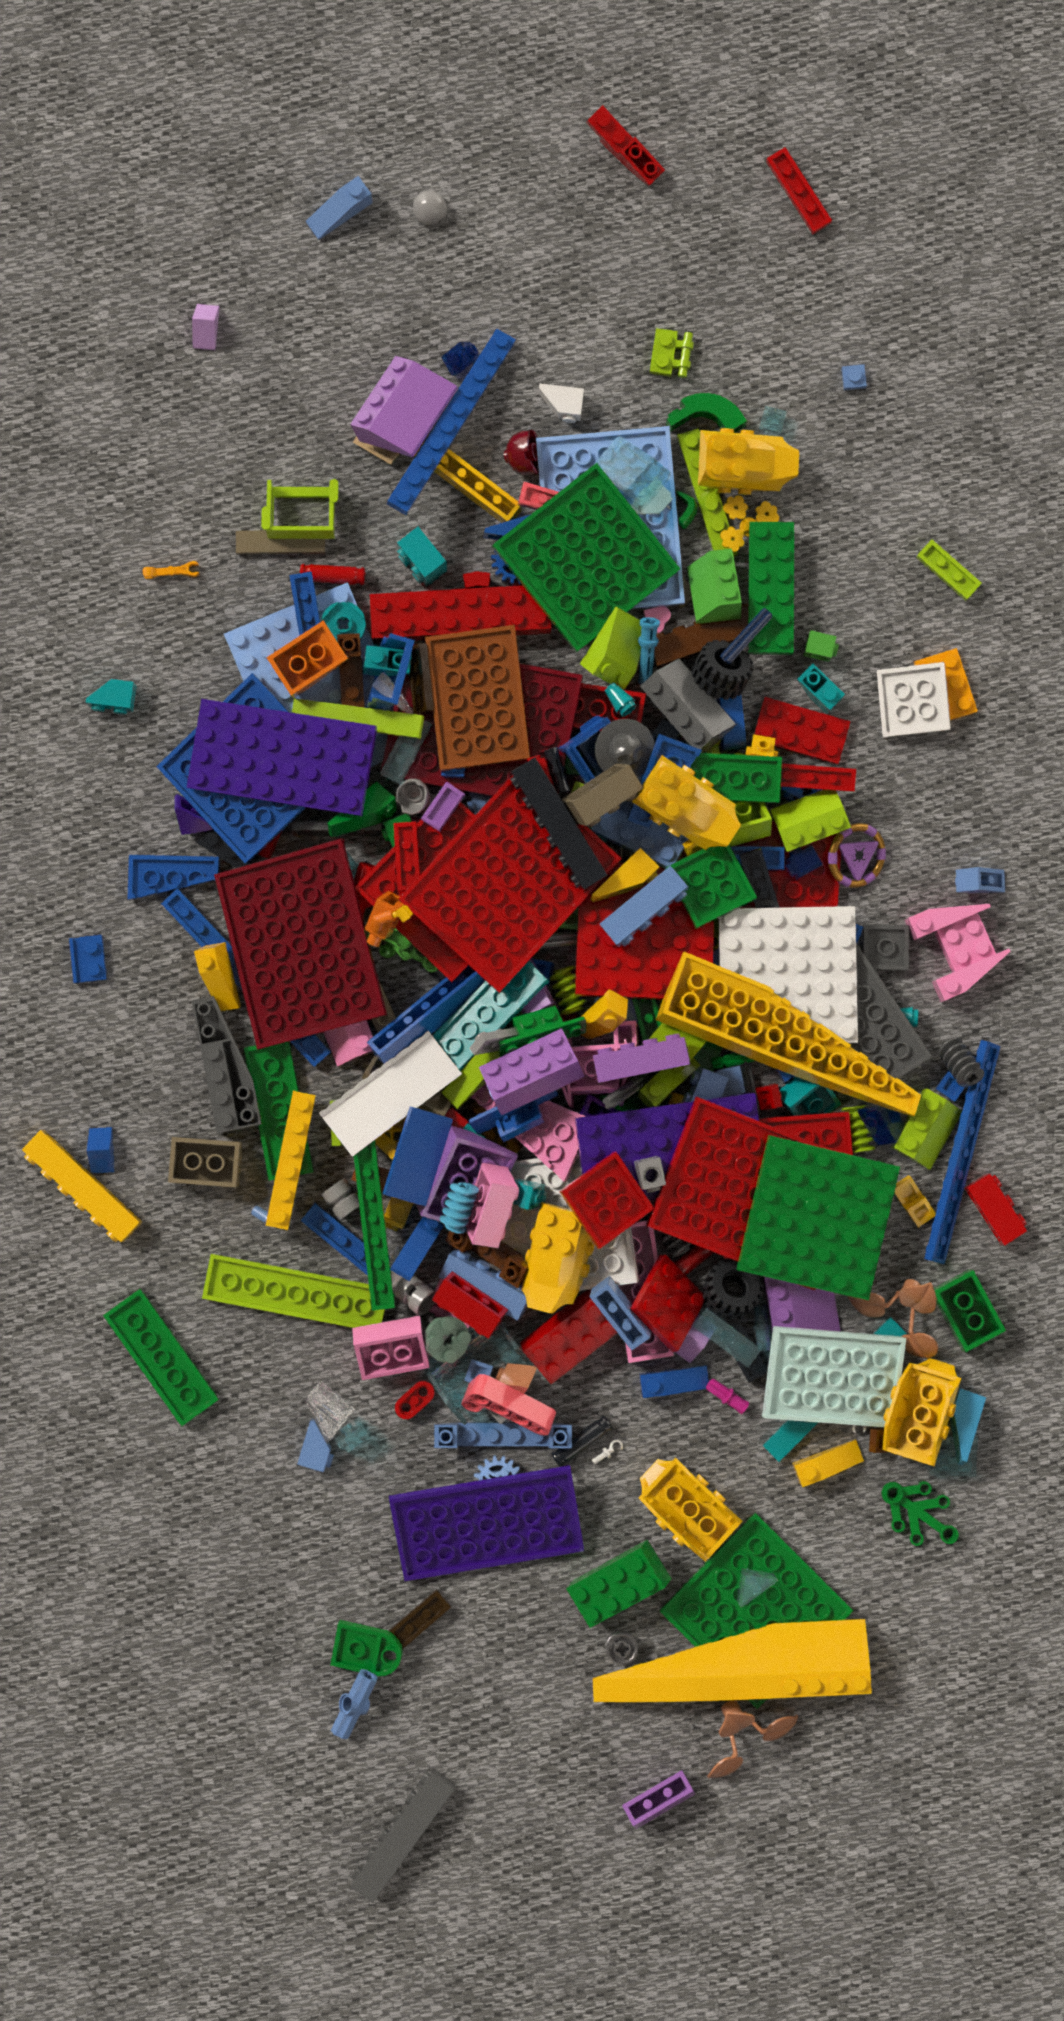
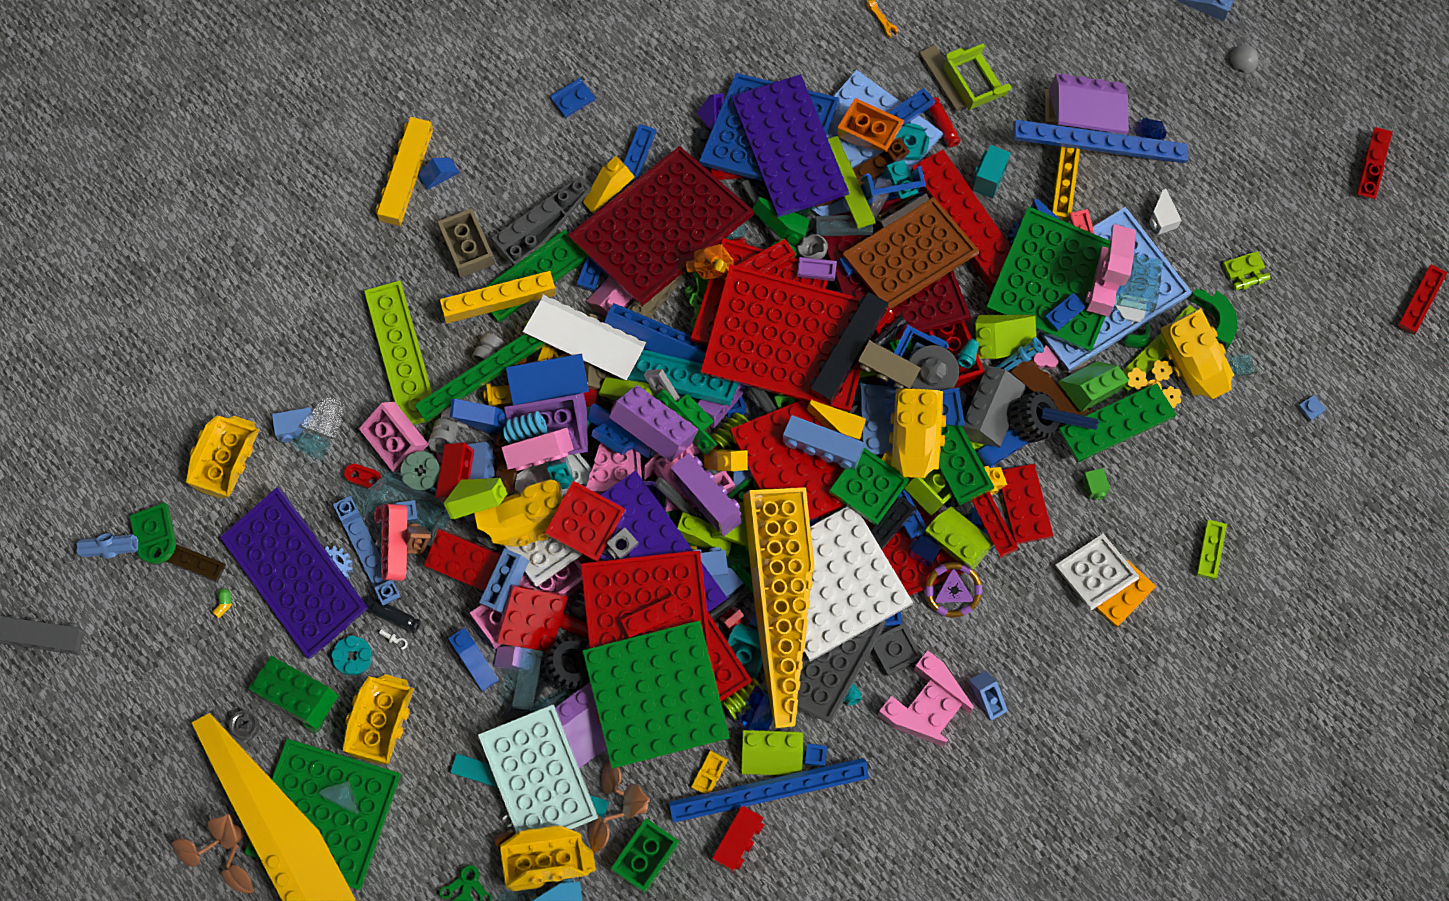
camera: 60 degrees right, 15 degrees down
(113, 695) = (770, 22): teal slope -> none
(161, 1357) = (306, 285): green plate -> none
(163, 873) = (662, 116): blue wing -> none
(314, 1536) = (221, 455): none -> yellow slope
(336, 1235) = (460, 355): blue plate -> none
(476, 579) = (998, 217): red piece -> none
(478, 1608) = (224, 602): none -> arm
(515, 1299) = (474, 496): none -> lime slope
(522, 453) = (1109, 202): dark red cylinder -> none
(611, 1492) = (352, 644): none -> teal plate
(617, 499) = (1112, 270): none -> bright pink wedge
(627, 573) = (1065, 312): none -> blue plate
(658, 1799) = (136, 811): medium lavender brick -> none
(727, 1396) = (482, 706): dark pink axle -> none
(740, 1181) = (652, 616): none -> red plate
(820, 689) = (1064, 499): teal slope -> none
(827, 1463) = (468, 810): yellow slope -> none
(960, 1062) = (838, 749): dark grey piece -> none

